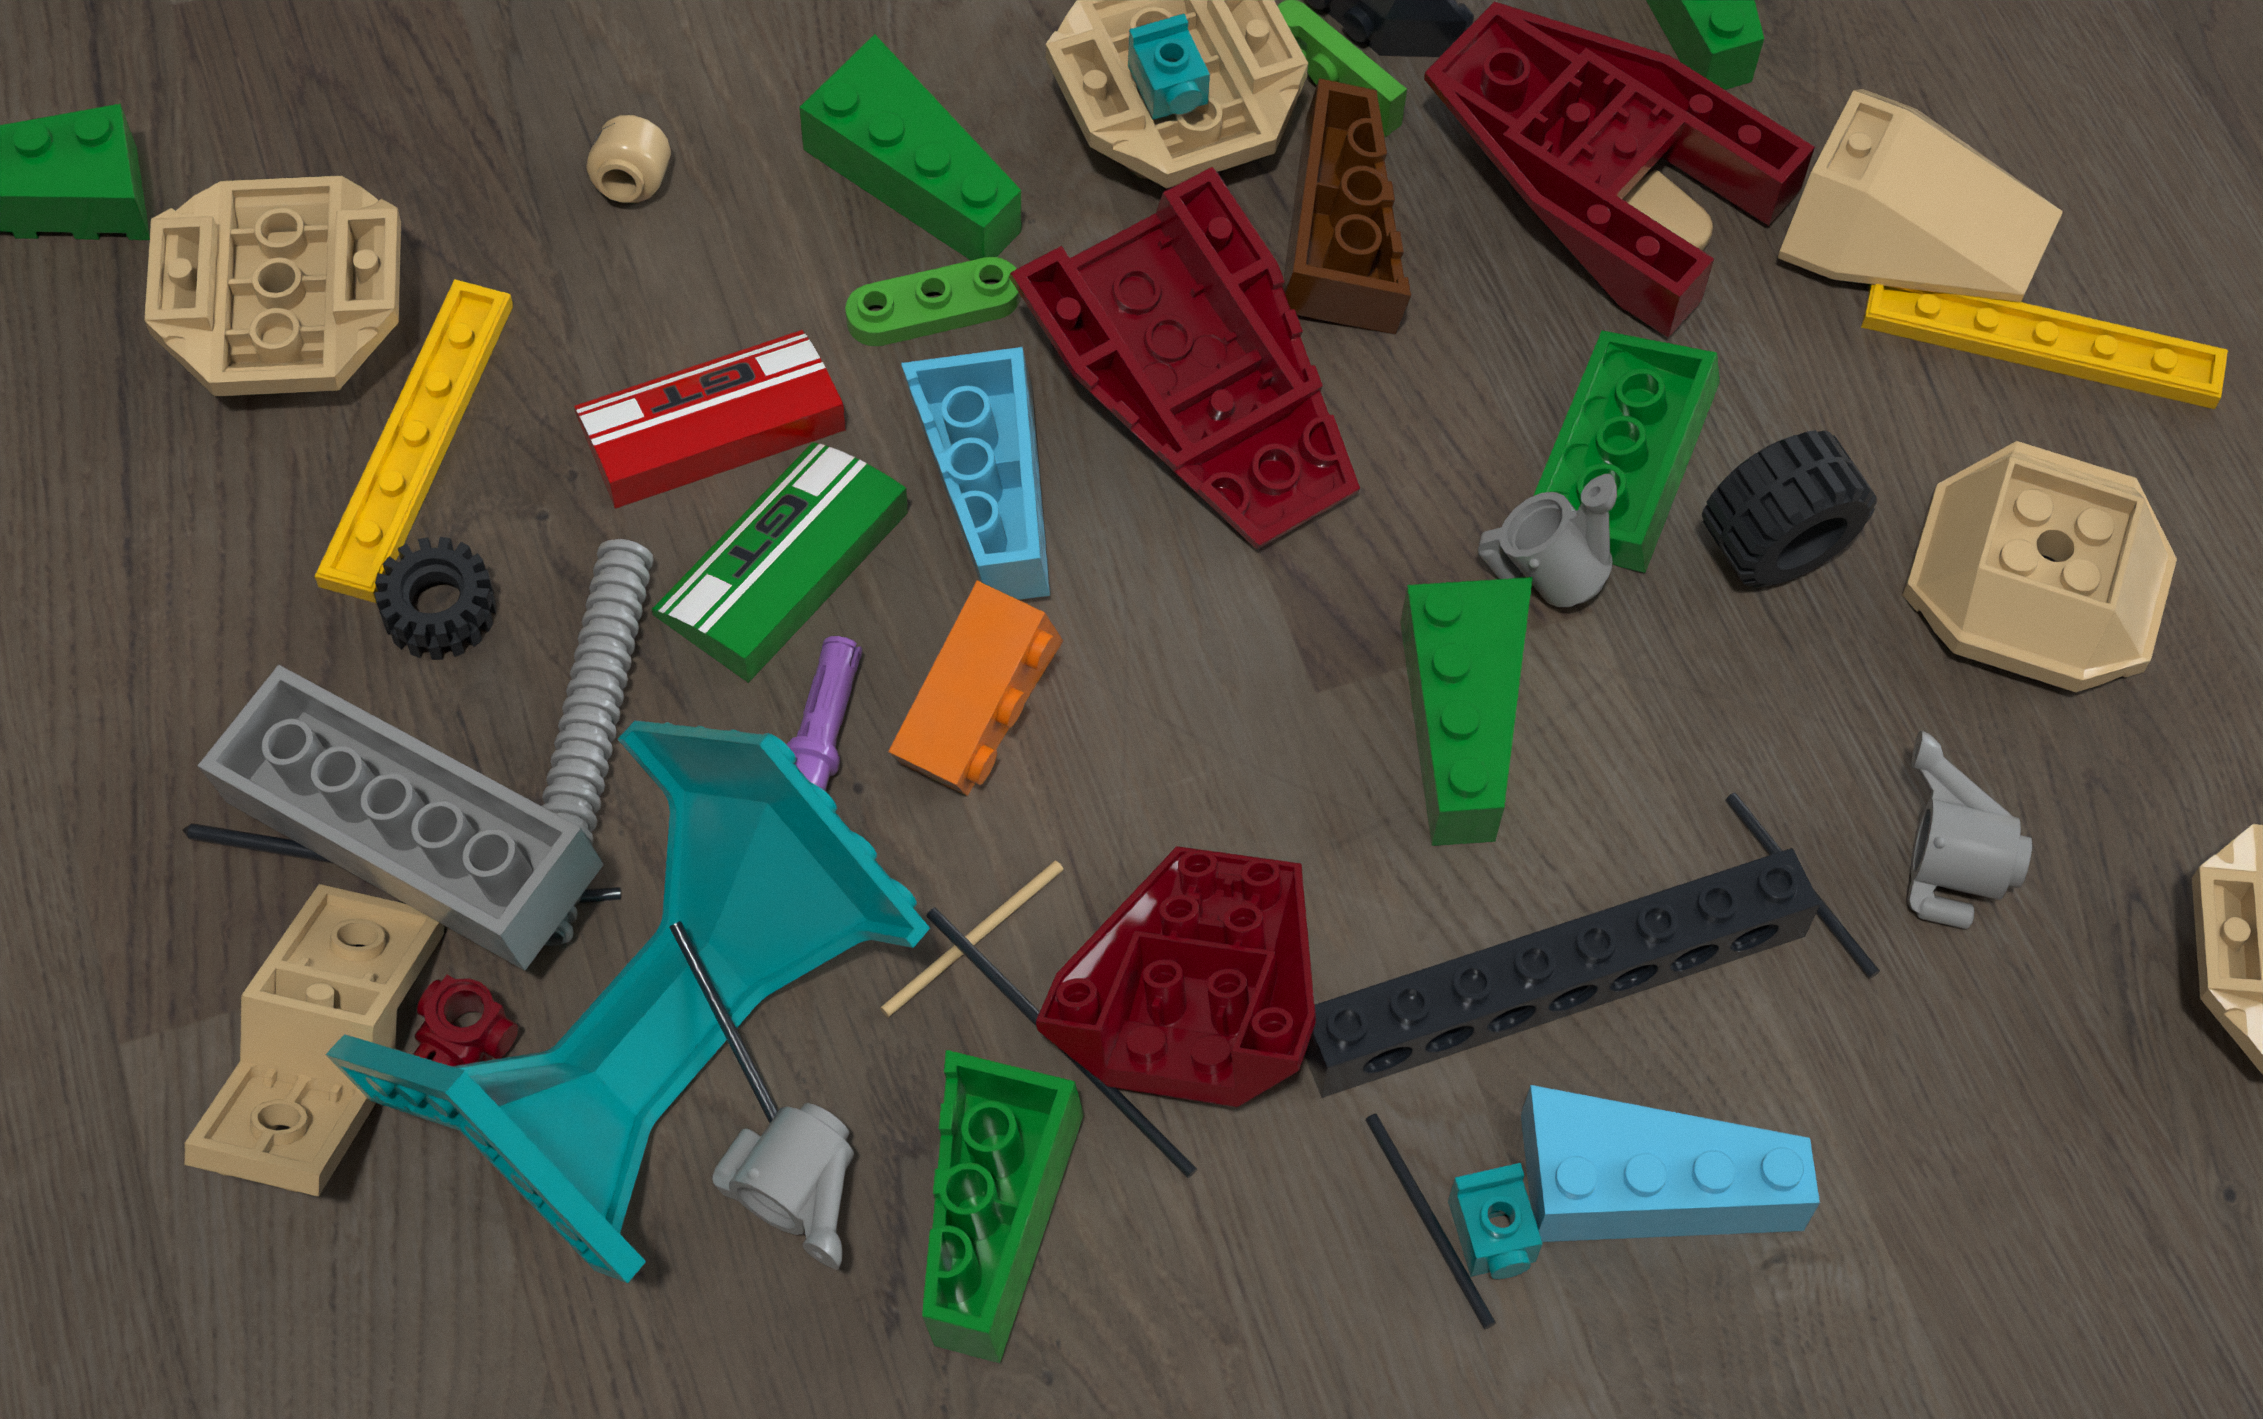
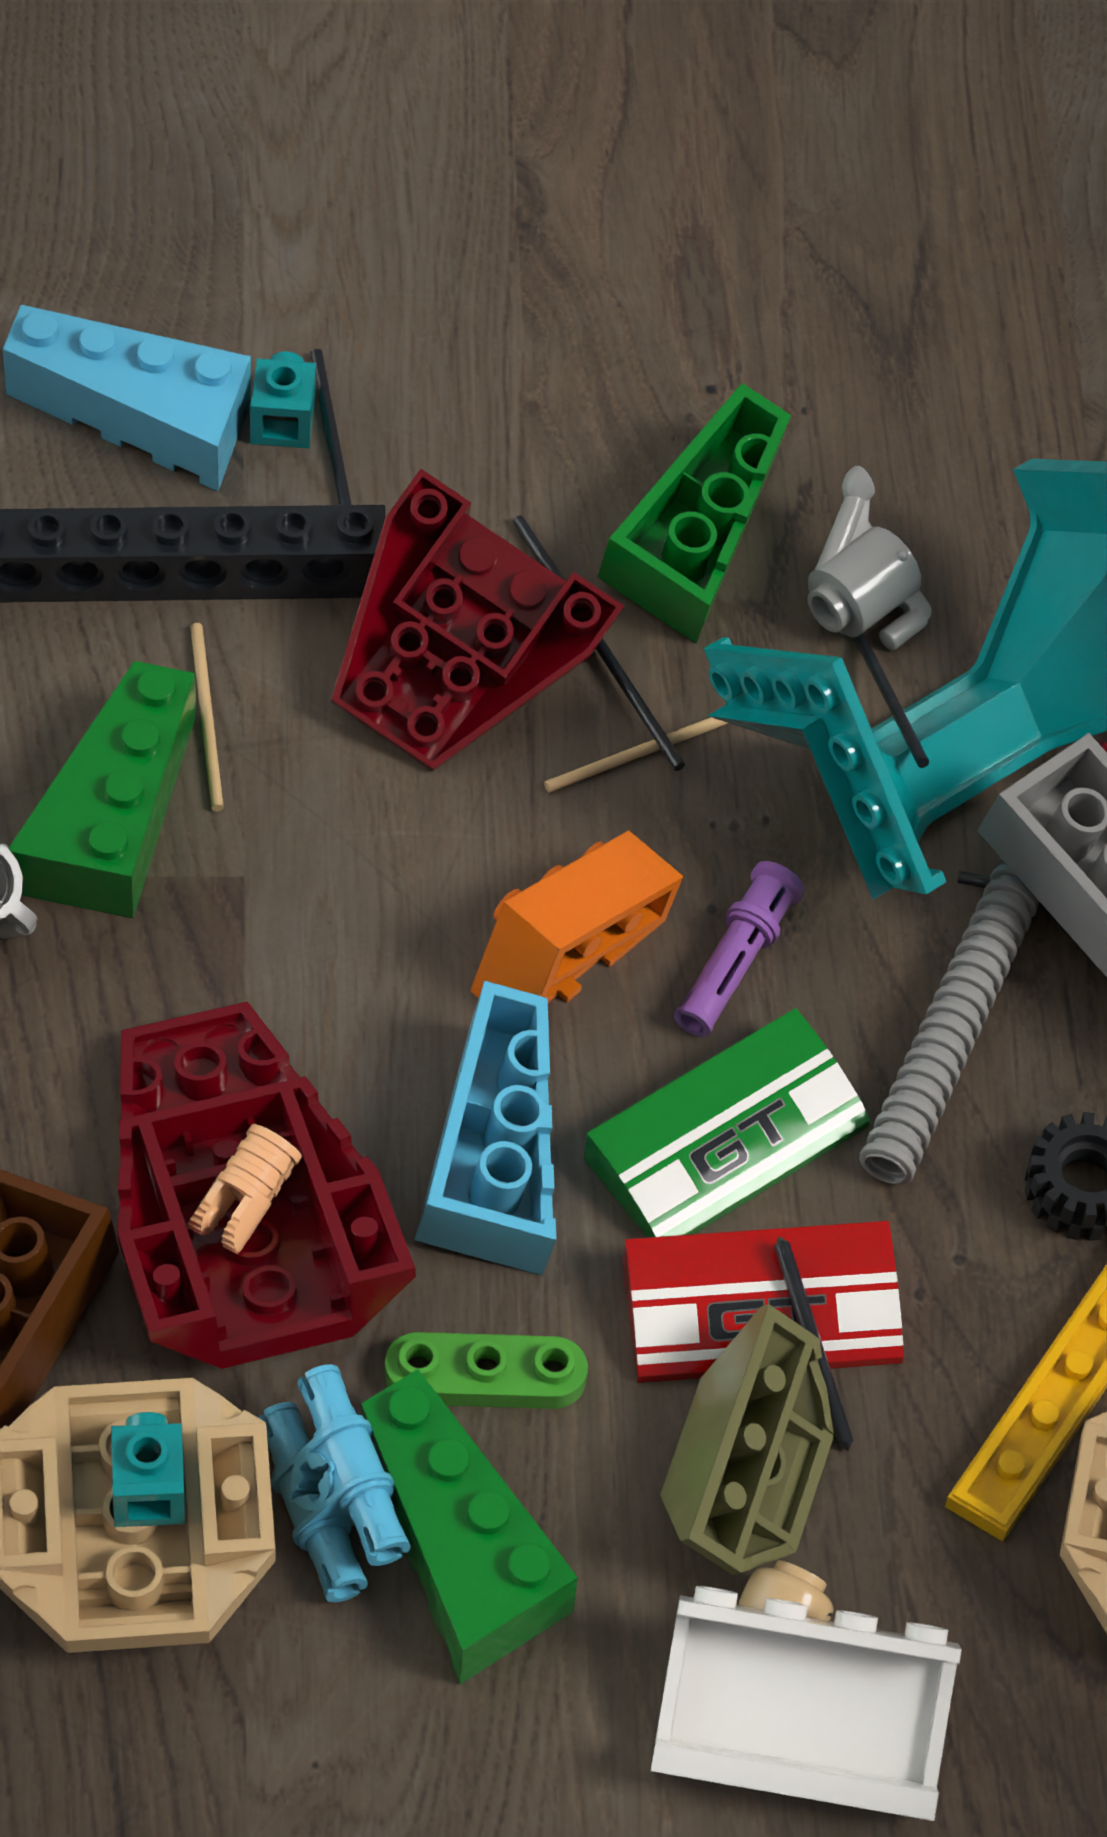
camera: 165 degrees left, 5 degrees down
(589, 72) = (806, 1703): none -> white panel
(655, 376) = (806, 1320): none -> black axle
(688, 251) = (752, 1447): none -> olive wedge
(1025, 149) = (333, 1484): none -> medium azure pin
(1185, 353) = (252, 1179): none -> light nougat hinge
(1421, 844) = (207, 717): none -> tan axle

